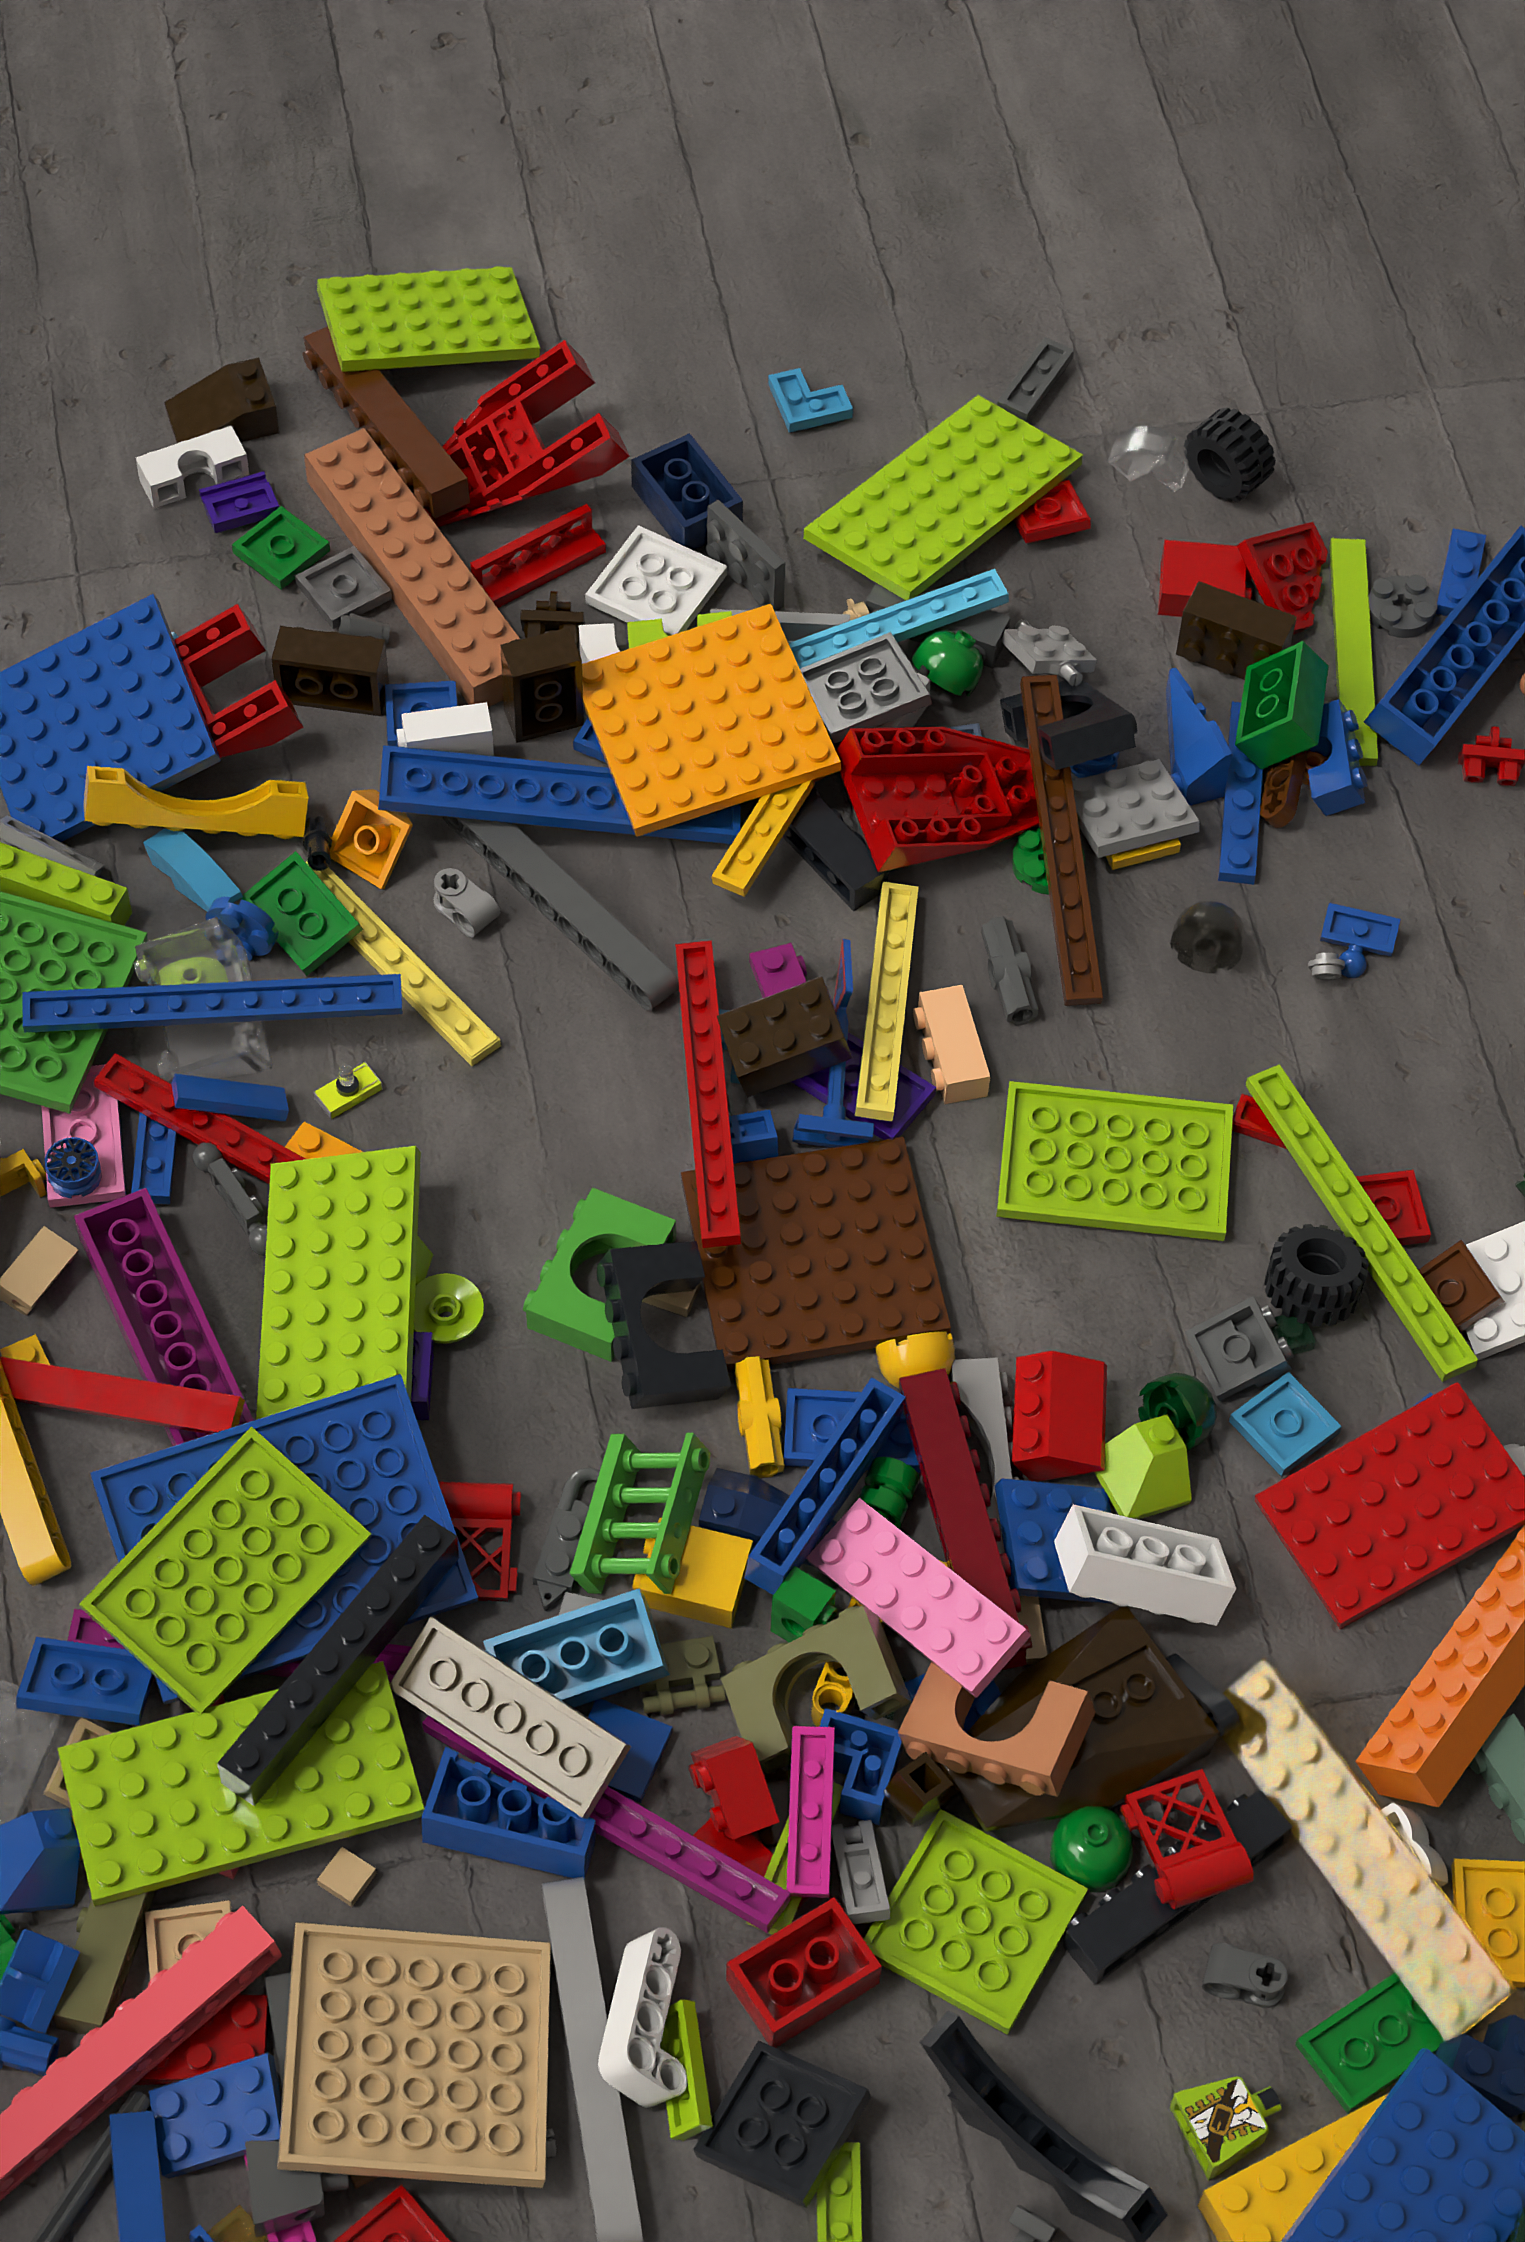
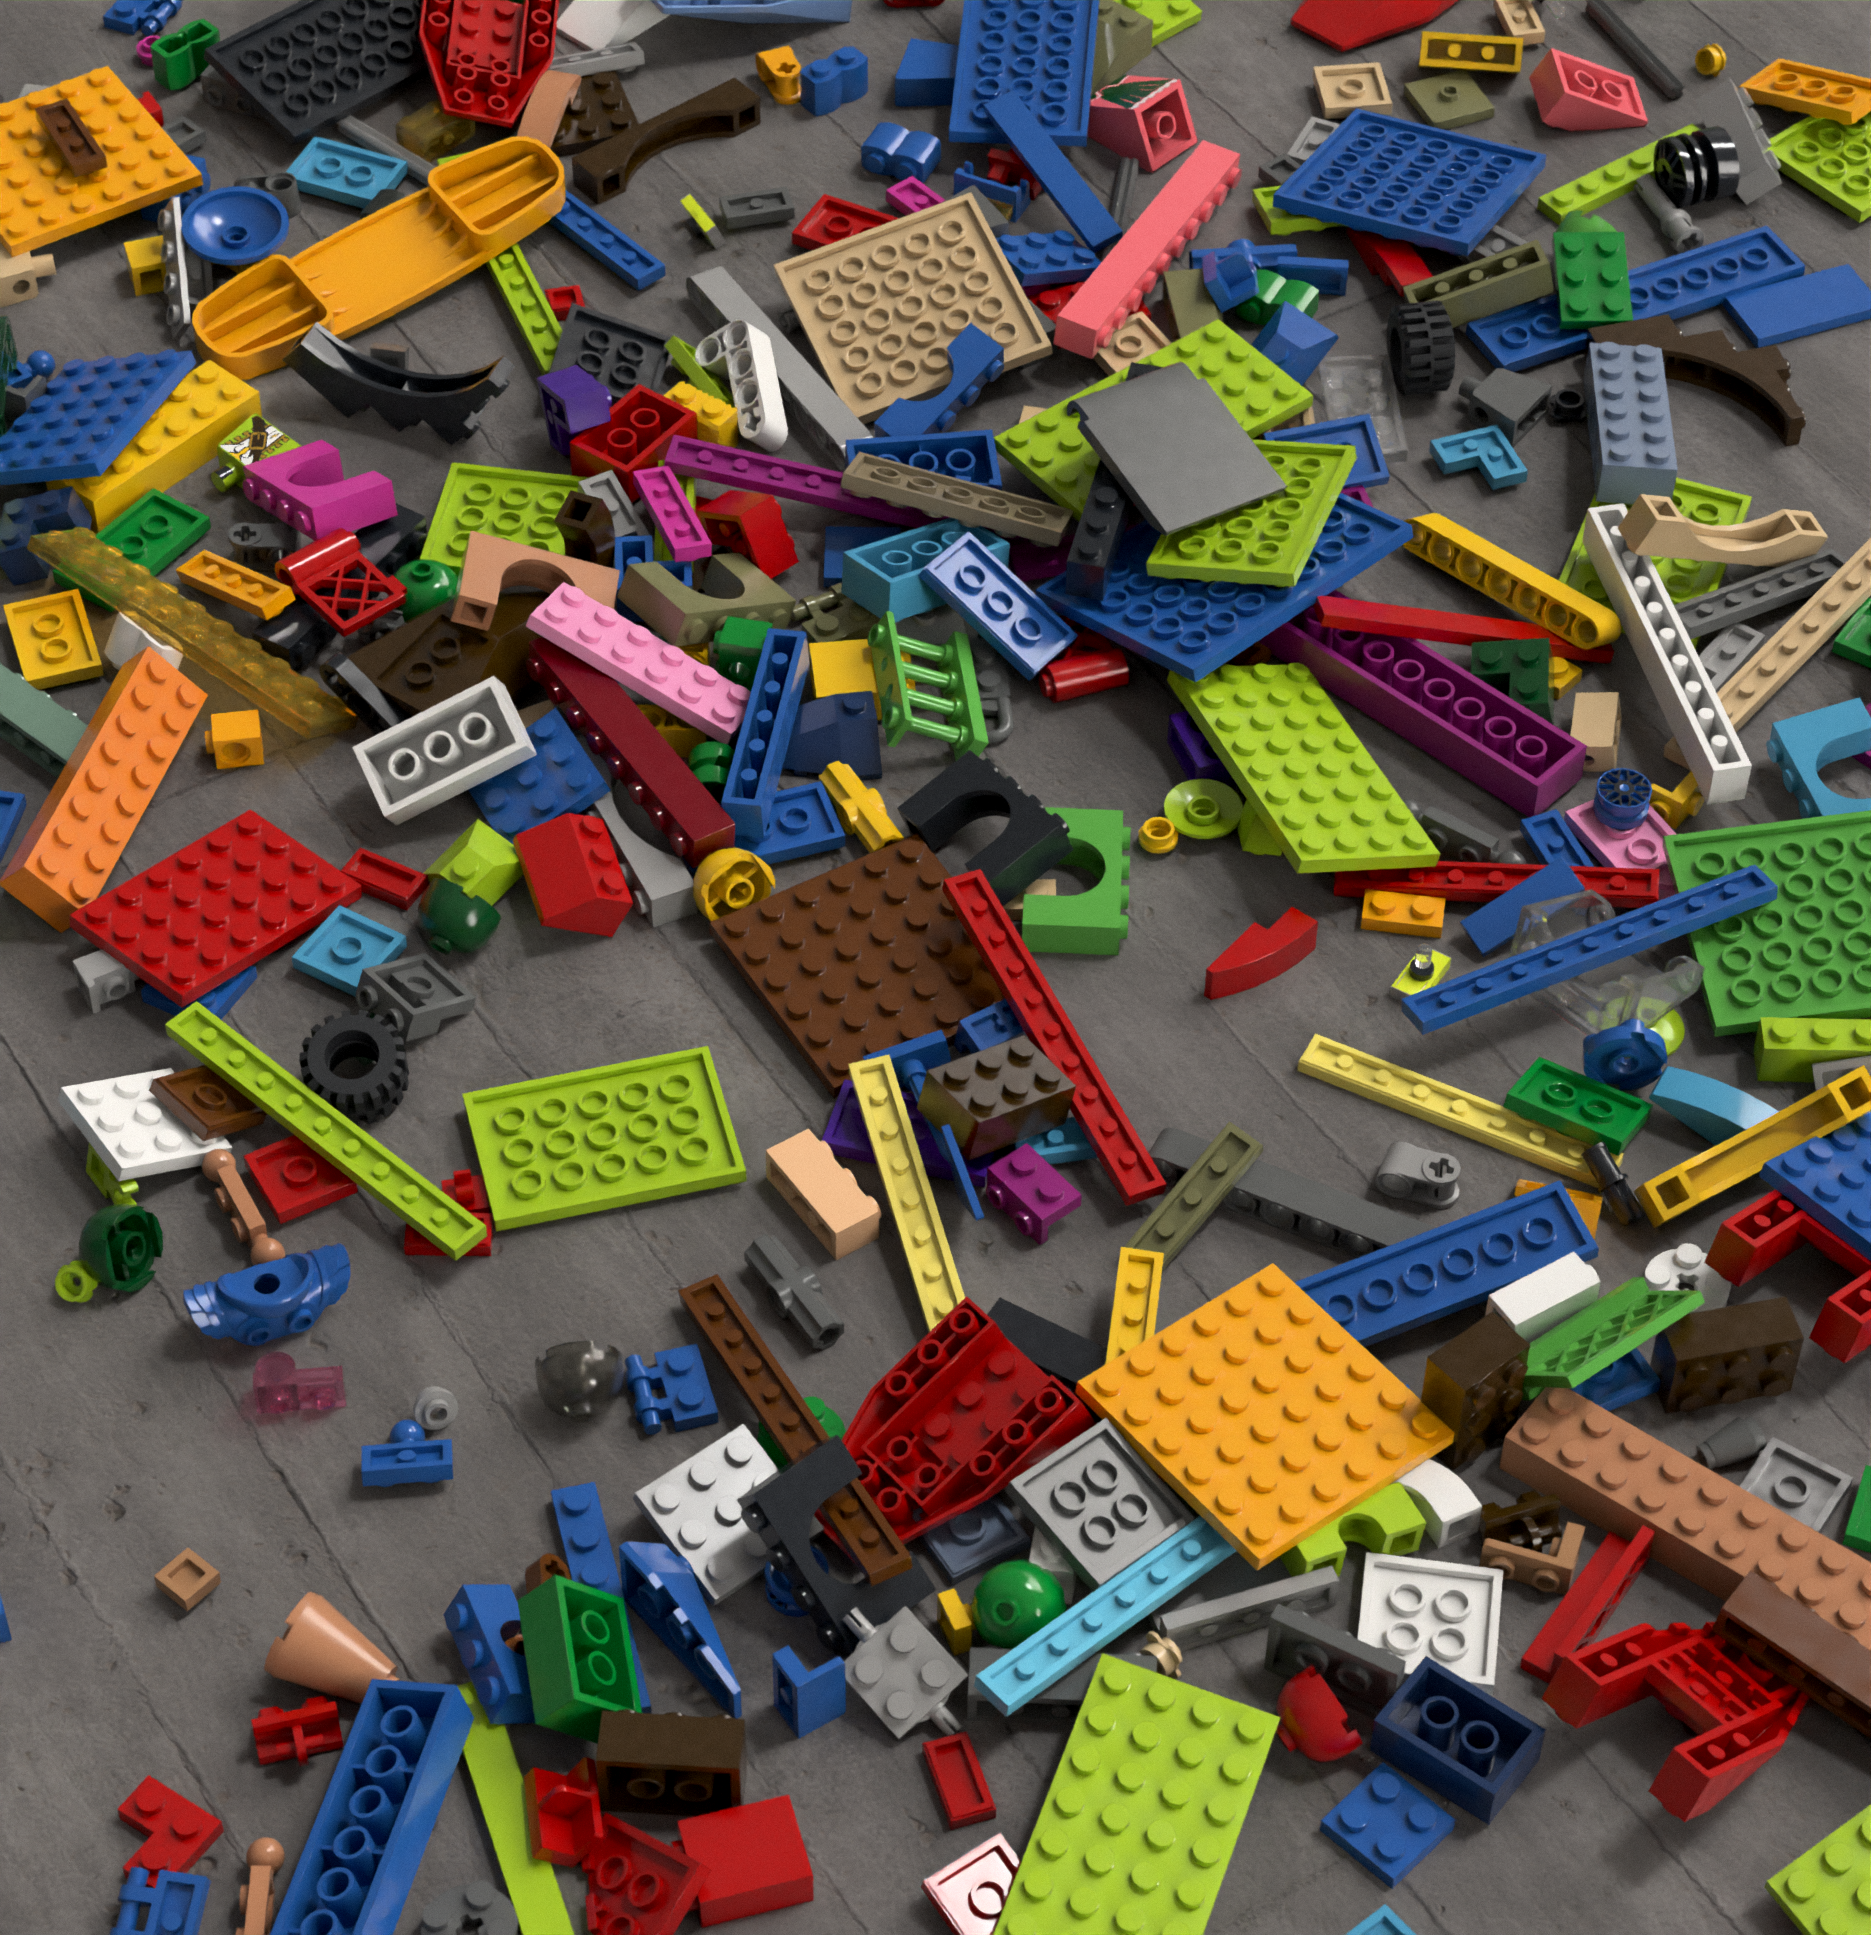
camera: 160 degrees right, 10 degrees down
(69, 1332) = (1518, 670): none -> dark green brick
(276, 1635) = (1175, 448): none -> piece
(312, 742) = (1688, 1266): none -> white plate
(389, 719) = (1603, 1334): none -> bright green fence
(477, 1142) = (1261, 954): none -> red slope
(492, 1890) = (973, 362): none -> blue arch
(499, 1294) = (1158, 835): none -> yellow plate
(532, 1569) = (998, 605): none -> blue tile
(542, 582) = (1537, 1569): none -> medium nougat bracket
(659, 927) = (1197, 1193): none -> olive tile
(716, 1996) = (715, 419): none -> yellow brick
(760, 479) = (1387, 1825): none -> blue plate
(778, 528) = (1314, 1719): none -> red cylinder
(858, 2014) = (572, 404): none -> dark purple brick
(991, 685) = (955, 1621): none -> yellow plate
(1033, 595) = (959, 1780): none -> red tile
(1121, 649) = (805, 1697): none -> blue panel
(1122, 931) = (685, 1389): none -> blue plate
(1215, 2047) = (310, 491): none -> dark pink arch
(1230, 1507) = (386, 878): none -> red tile
(1248, 1152) = (467, 1191): none -> red tile
(1294, 1906) = (236, 584): none -> light orange plate
(1323, 635) = (563, 1813): none -> red panel
(1338, 1711) = (235, 739): none -> light orange brick
(1431, 1015) = (284, 1388): none -> clear pink plate
(1440, 1178) = (233, 1197): none -> nougat plate
(1442, 1064) = (270, 1296): none -> blue piece
(1459, 793) = (327, 1652): none -> nougat cone

